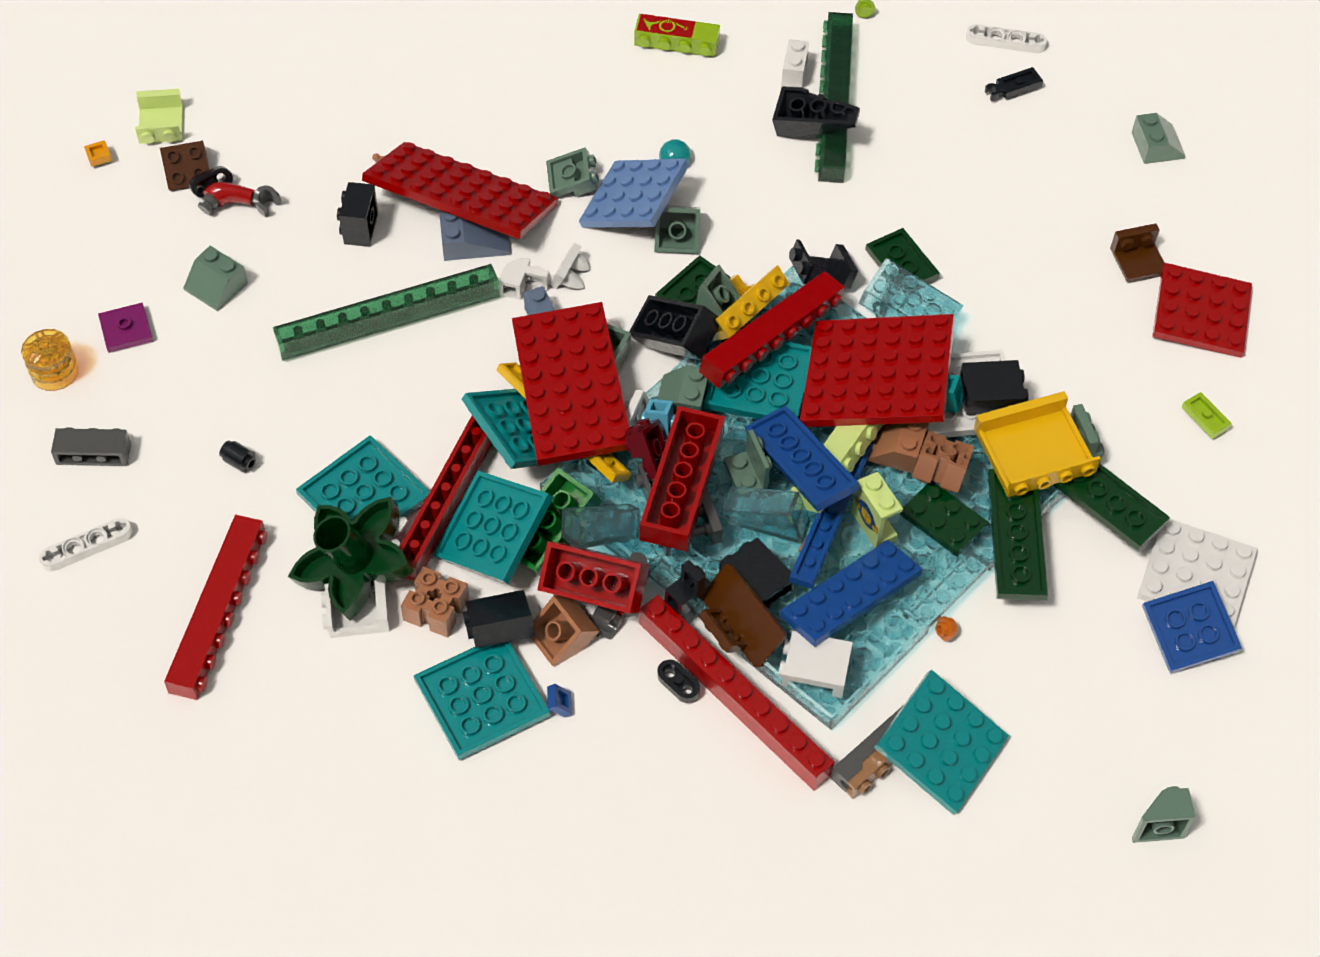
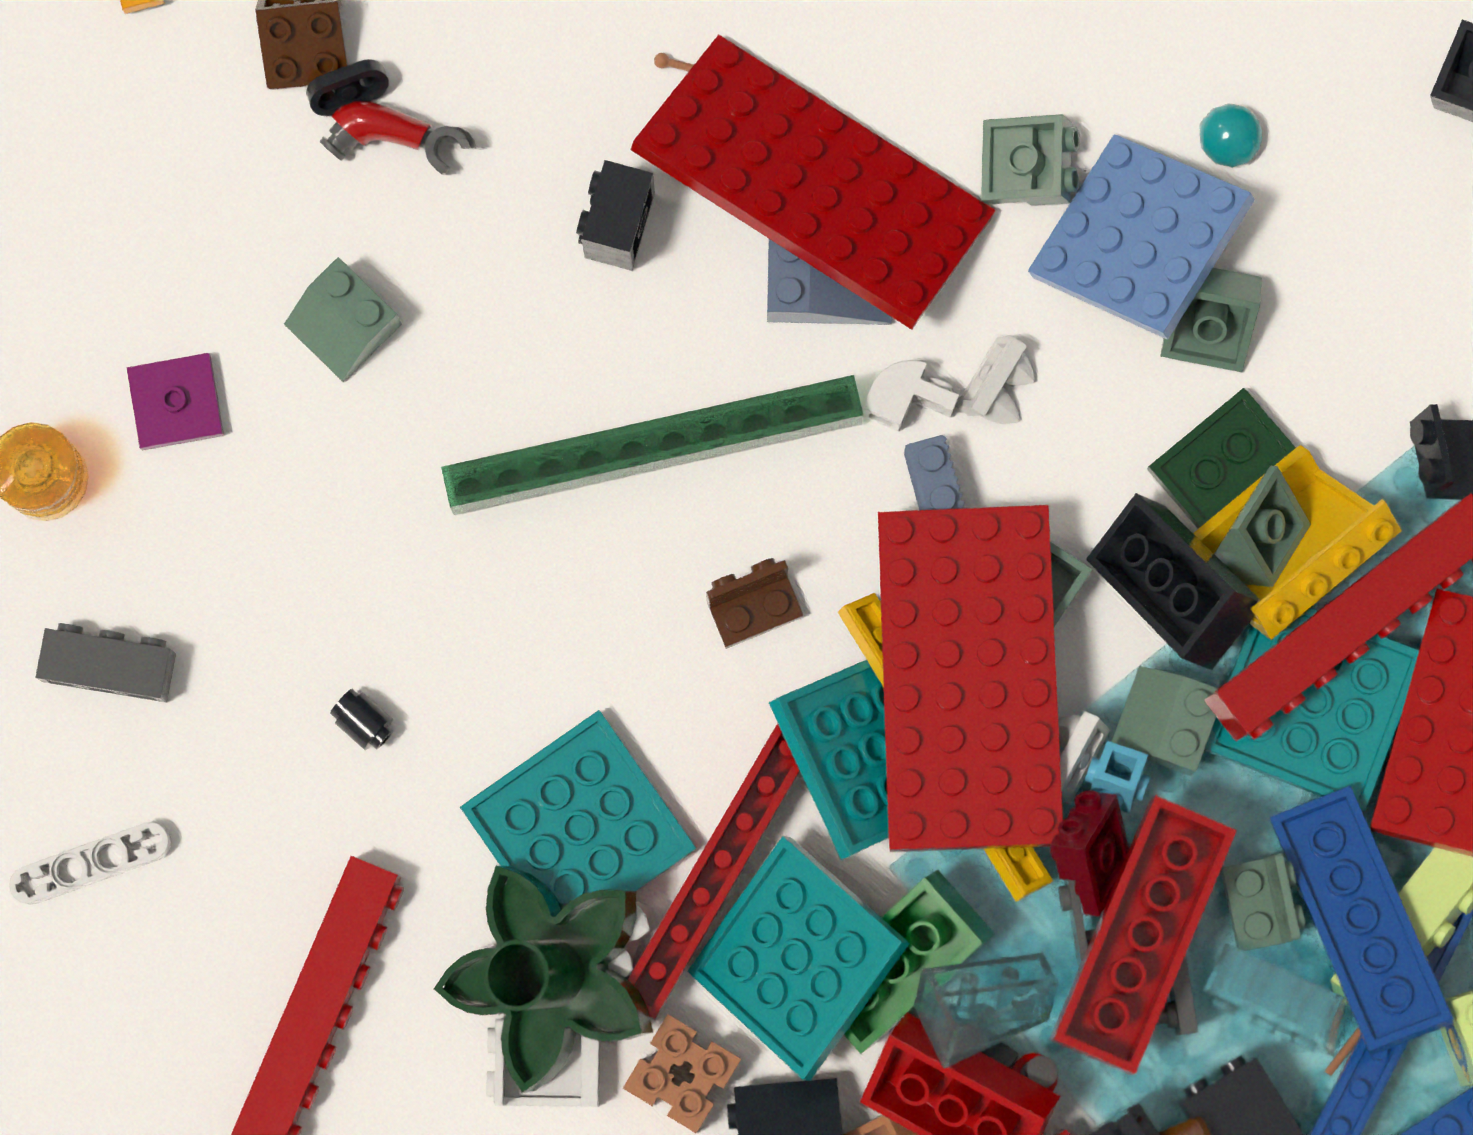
camera: 10 degrees right, 25 degrees up
(448, 373) = (753, 602): none -> reddish brown bracket

